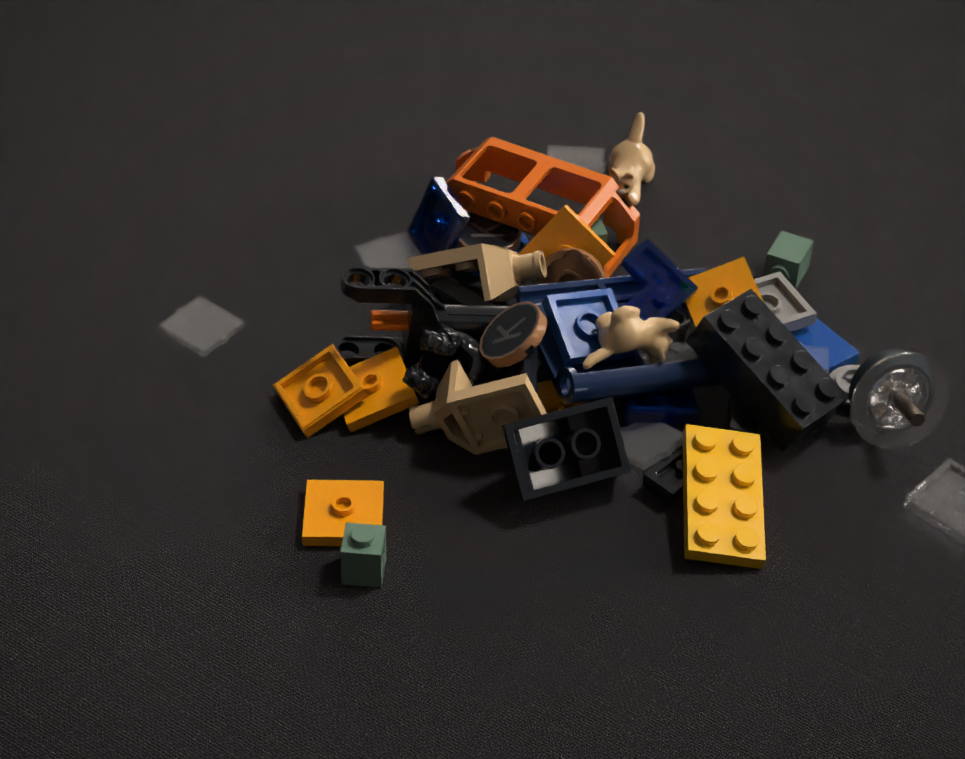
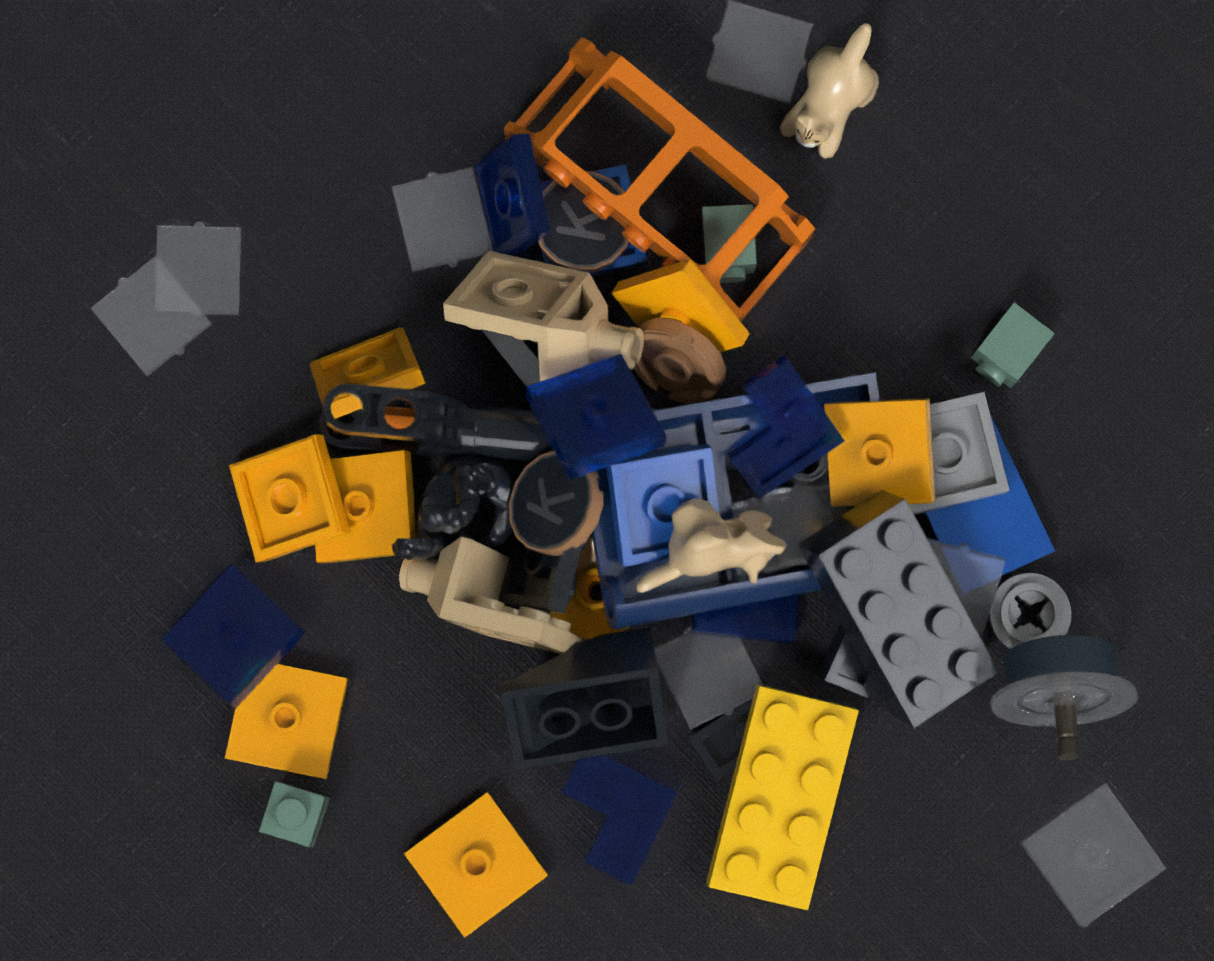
camera: 10 degrees right, 40 degrees up
(231, 297) = (198, 270): none -> clear piece
(295, 467) = (233, 636): none -> clear blue plate
(350, 319) = (374, 362): none -> light orange plate
(508, 574) = (476, 864): none -> light orange plate
(528, 279) = (595, 416): none -> clear blue plate
(614, 521) = (634, 812): none -> clear blue plate

